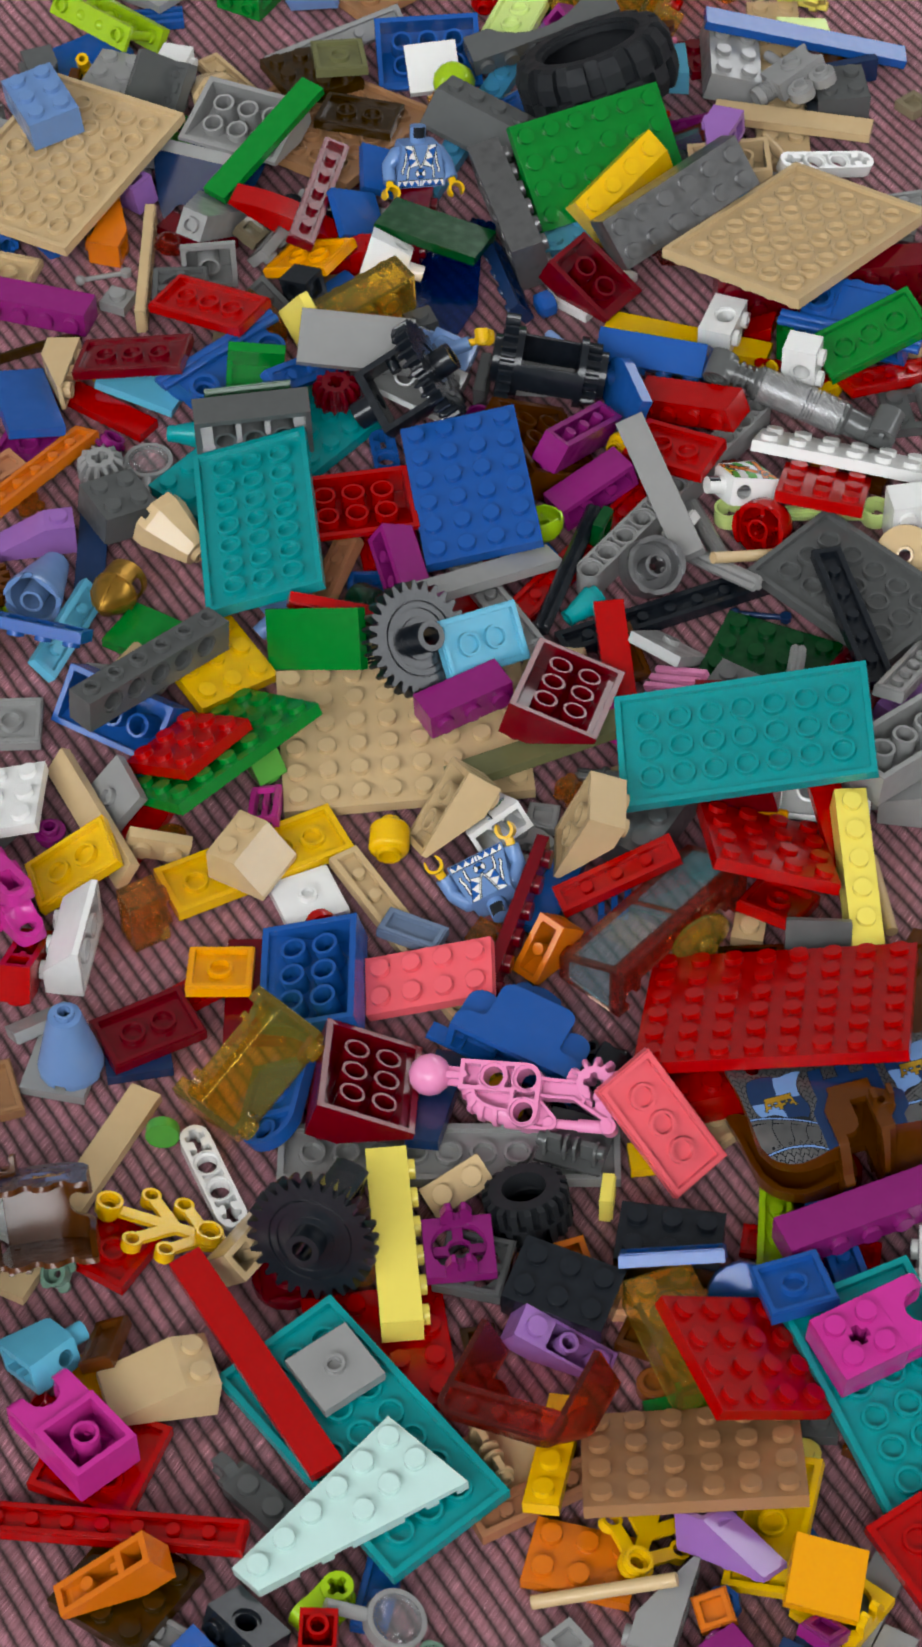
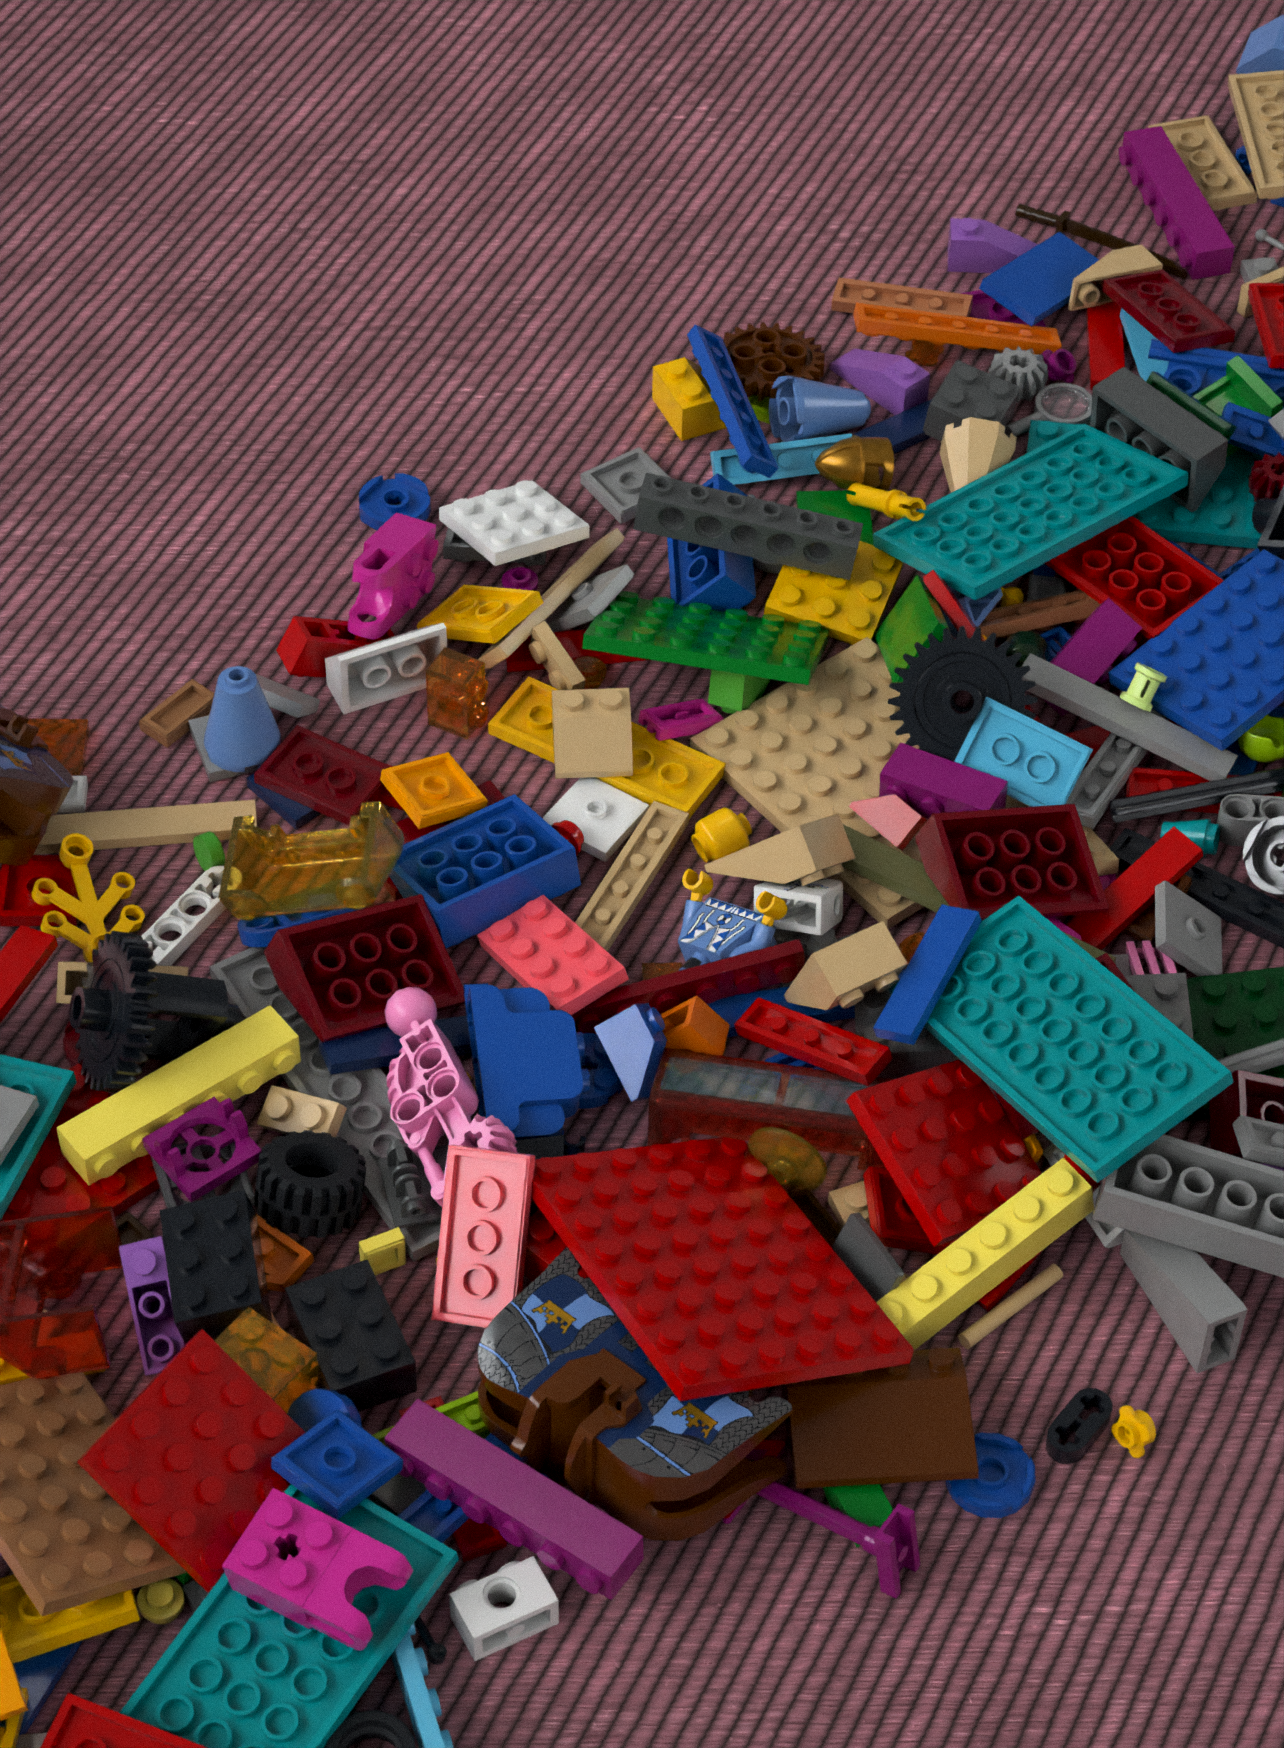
camera: 55 degrees right, 0 degrees up
(187, 587) = (892, 503): none -> yellow pin
(188, 745) = (685, 609): red plate -> none
(411, 930) = (605, 912): sand blue tile -> none
(462, 737) = (891, 818): none -> tile
(466, 551) = (1143, 687): none -> yellowish green bush
(550, 969) = (634, 1047): none -> slope
(642, 783) = (927, 974): none -> blue tile
(672, 1255) = (305, 1332): tile -> none

